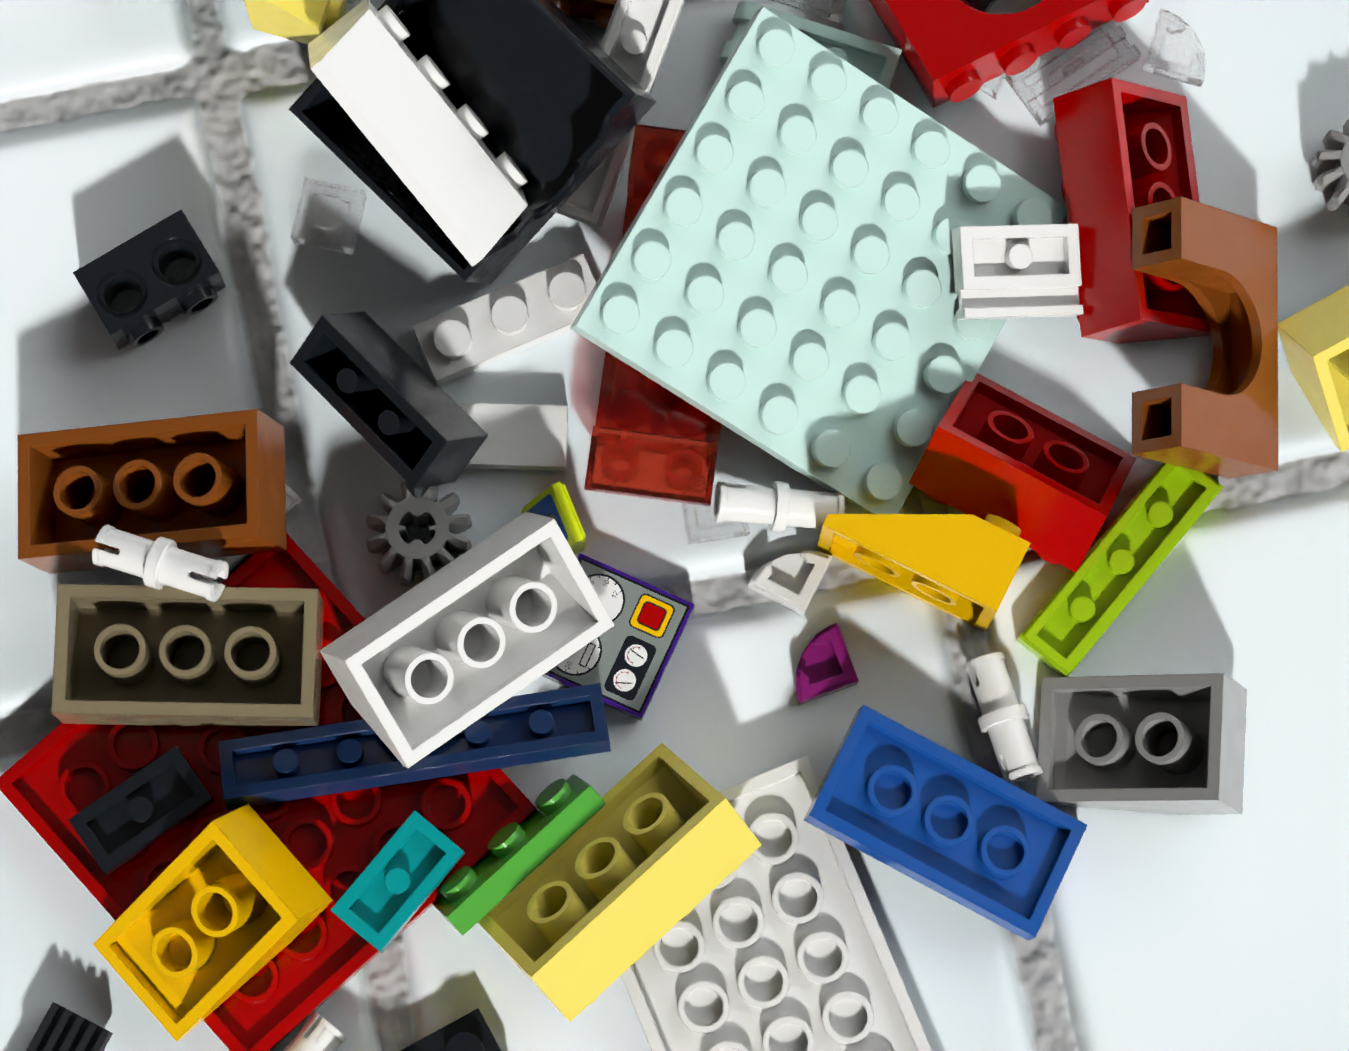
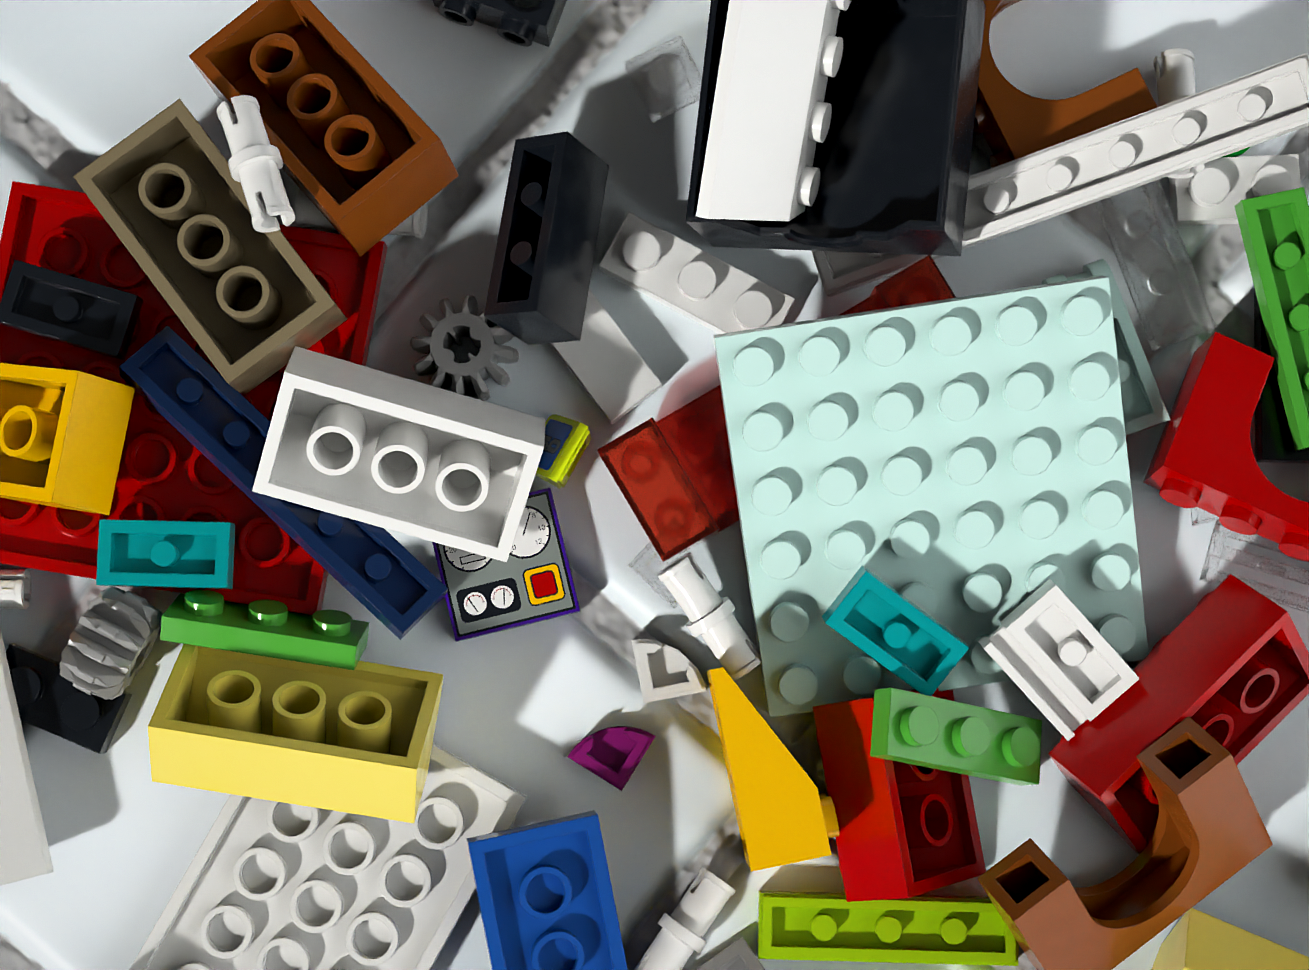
camera: 55 degrees right, 5 degrees up
(432, 981) = (110, 643): none -> light grey gear
(901, 372) = (895, 632): none -> teal plate
(1016, 392) = (955, 737): none -> bright green plate

